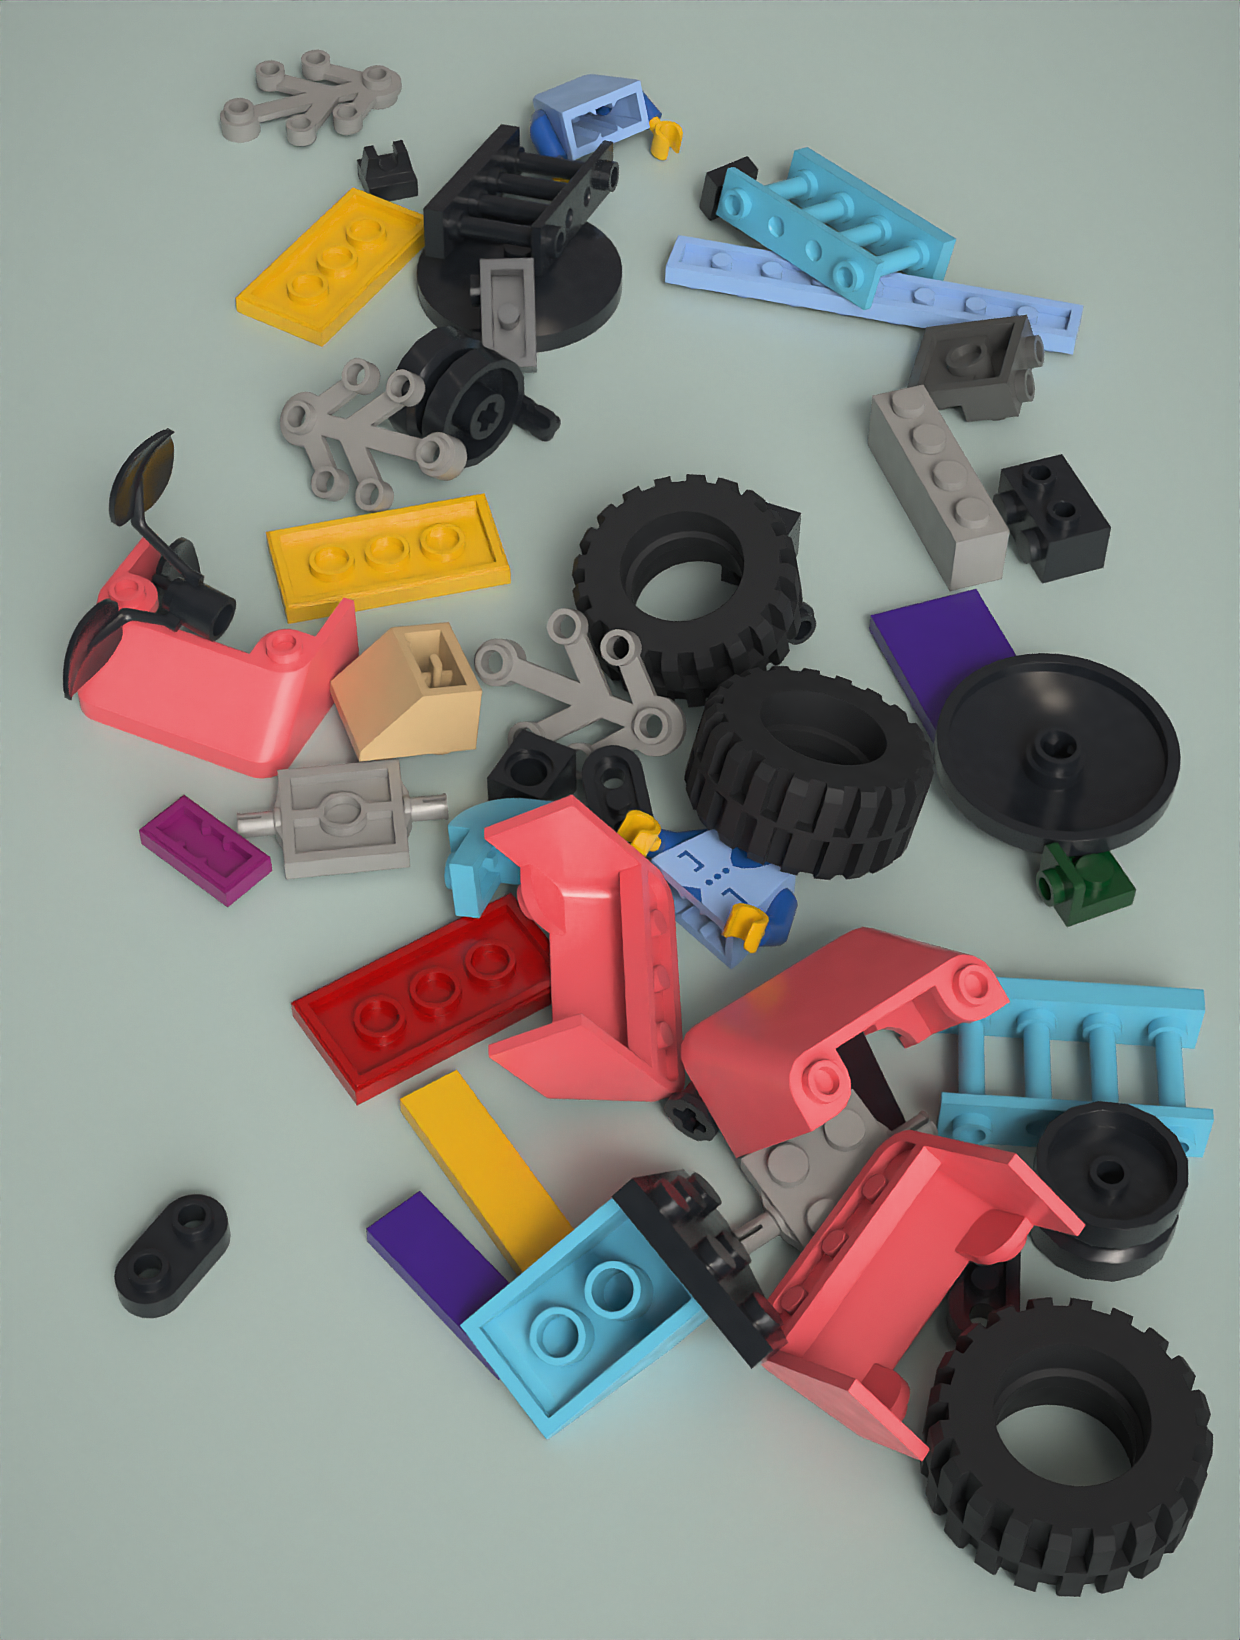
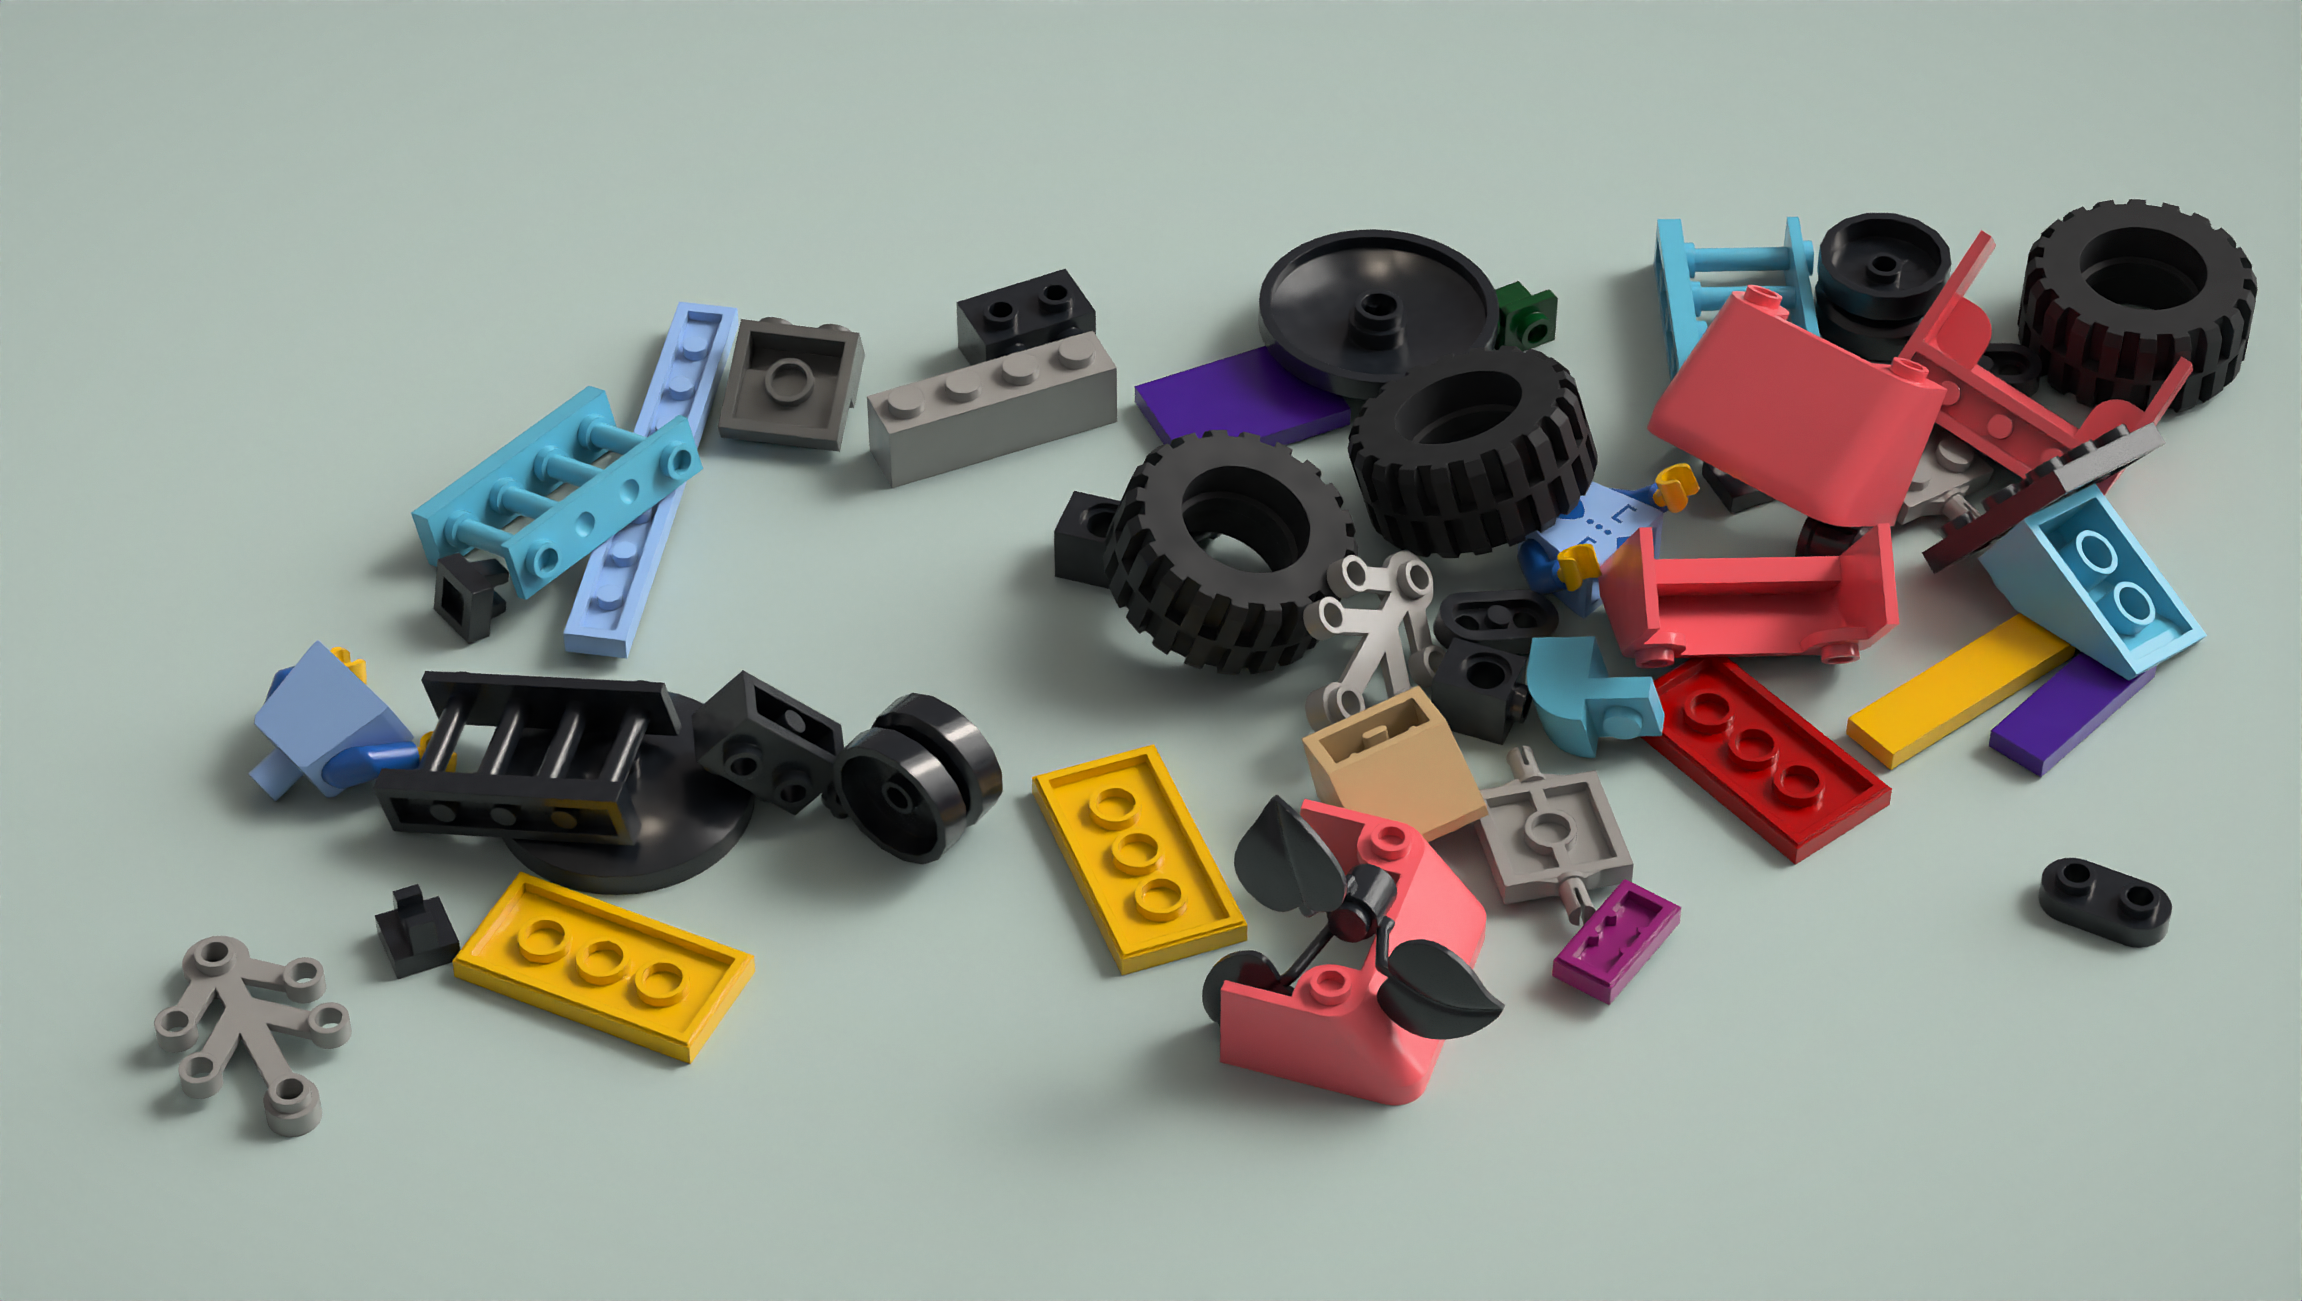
camera: 95 degrees left, 5 degrees down
(359, 434) = (984, 858): light grey plant -> none

